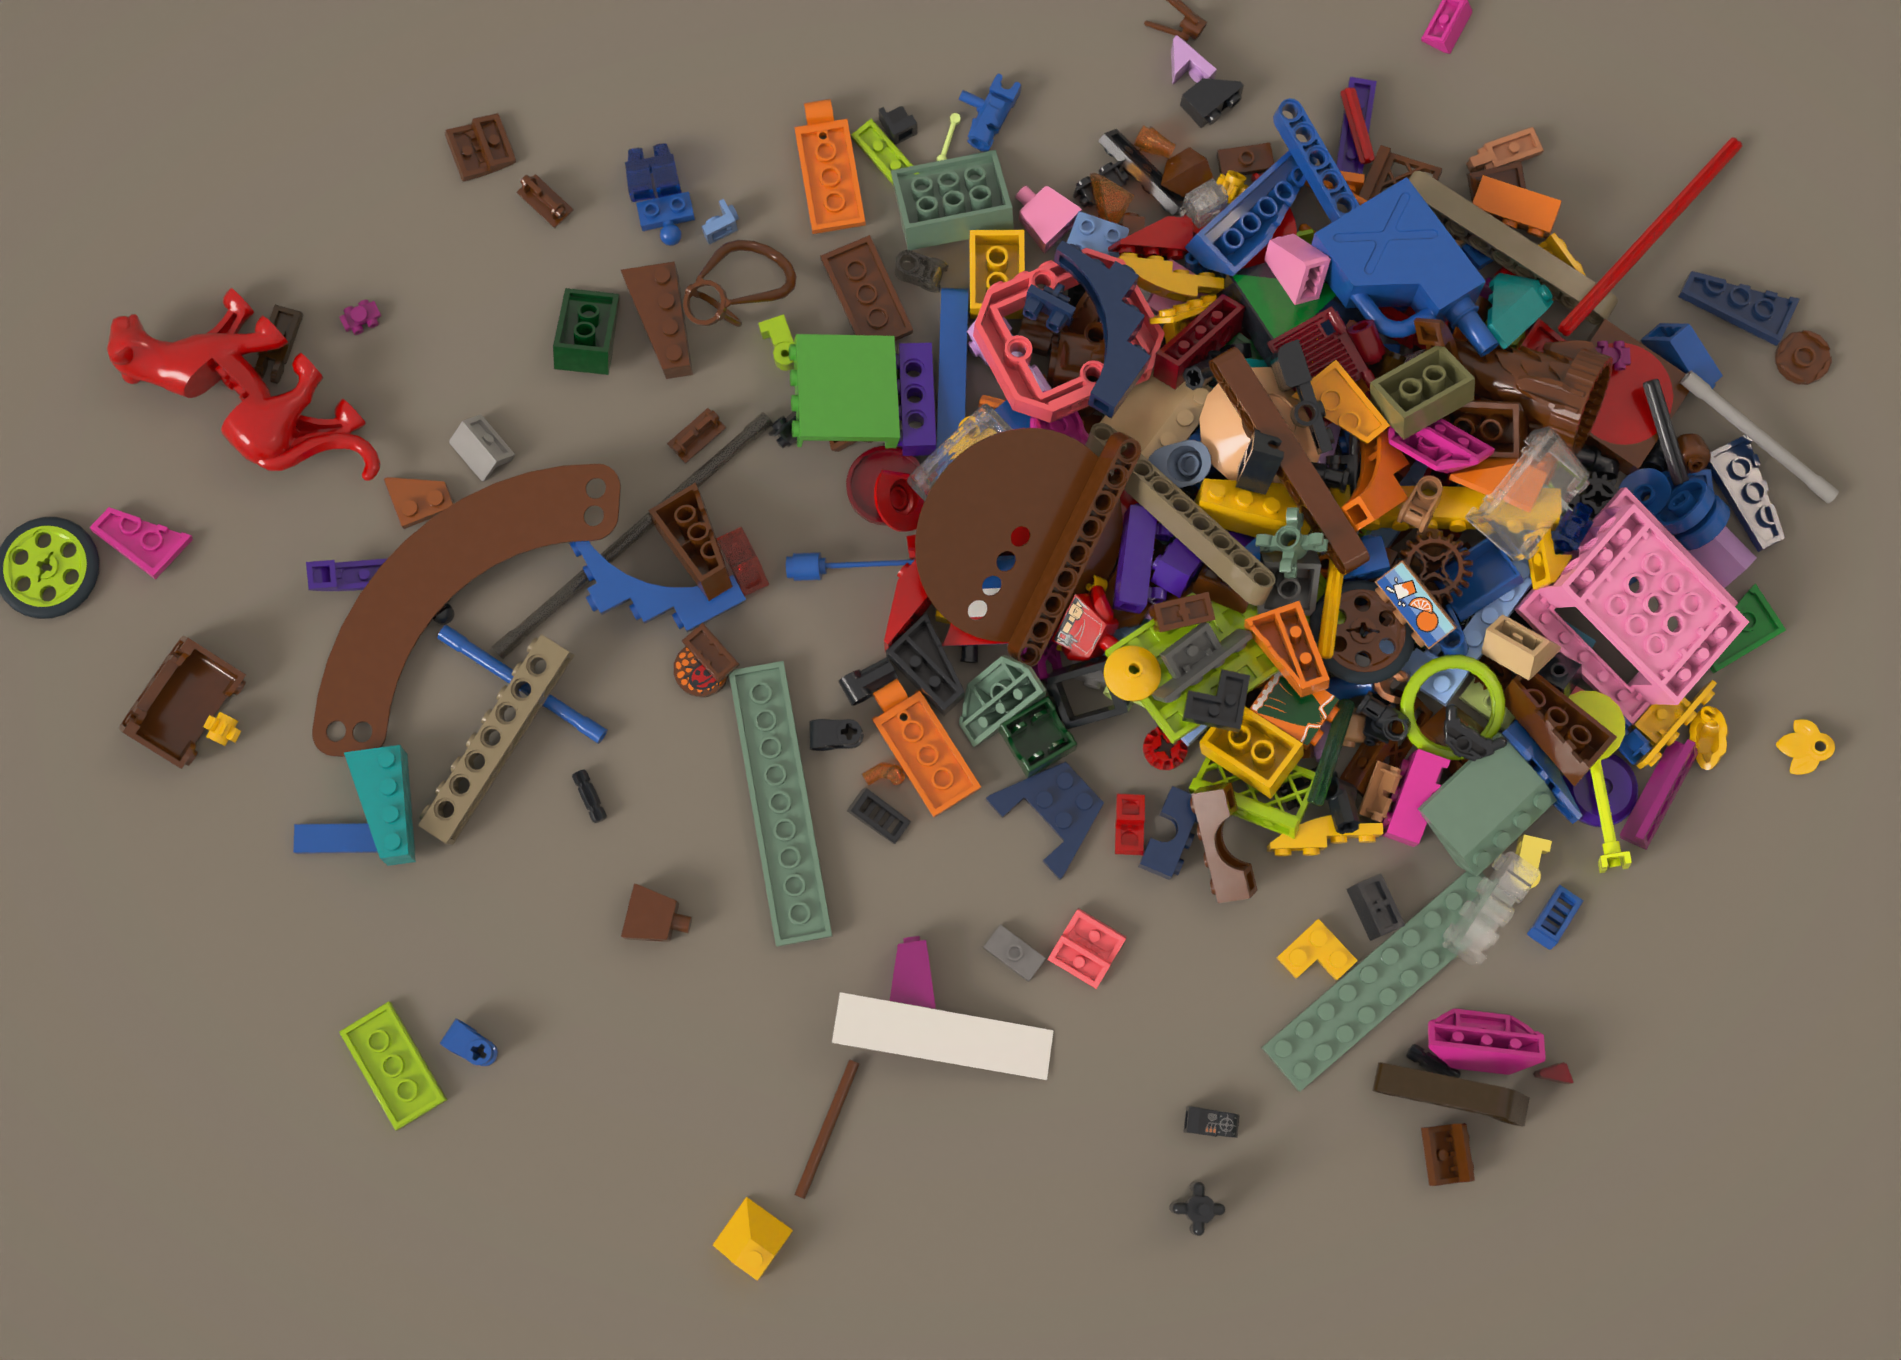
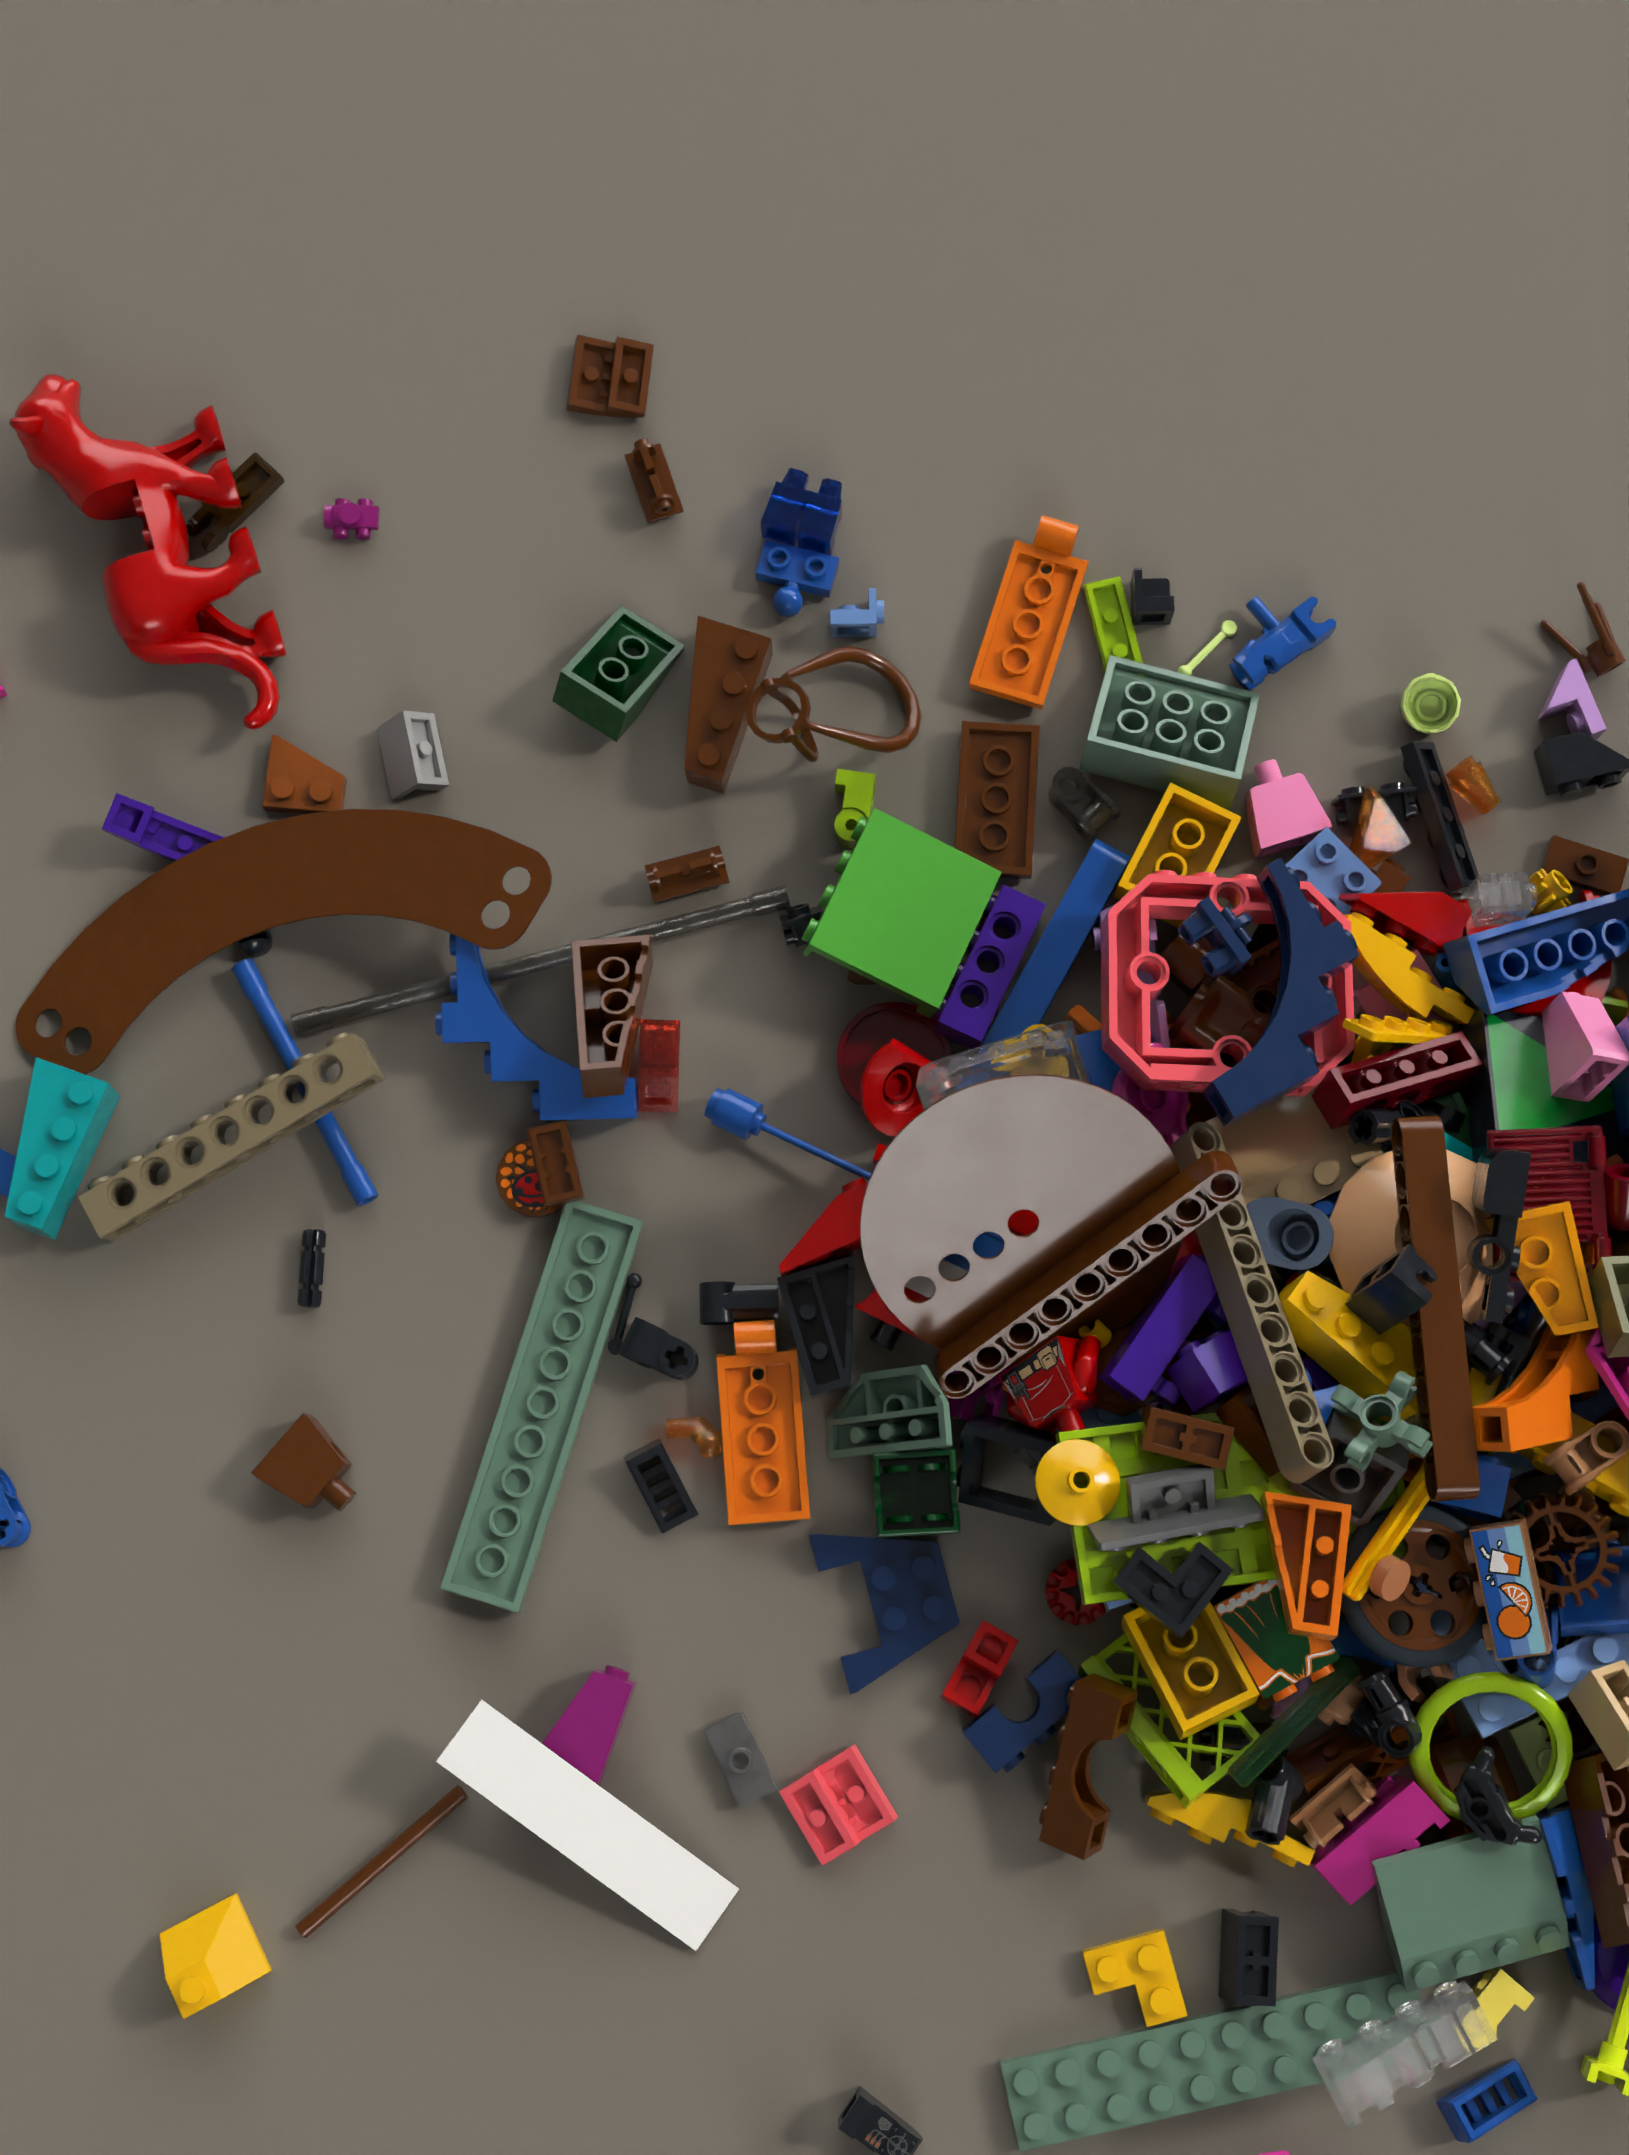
camera: 35 degrees right, 0 degrees up
(805, 746) = (633, 1281): none -> black hinge
(1102, 105) = (1430, 703): none -> yellowish green hair
(1186, 172) = (1496, 844): reddish brown slope -> none
(1343, 633) = (1390, 1578): none -> nougat tile

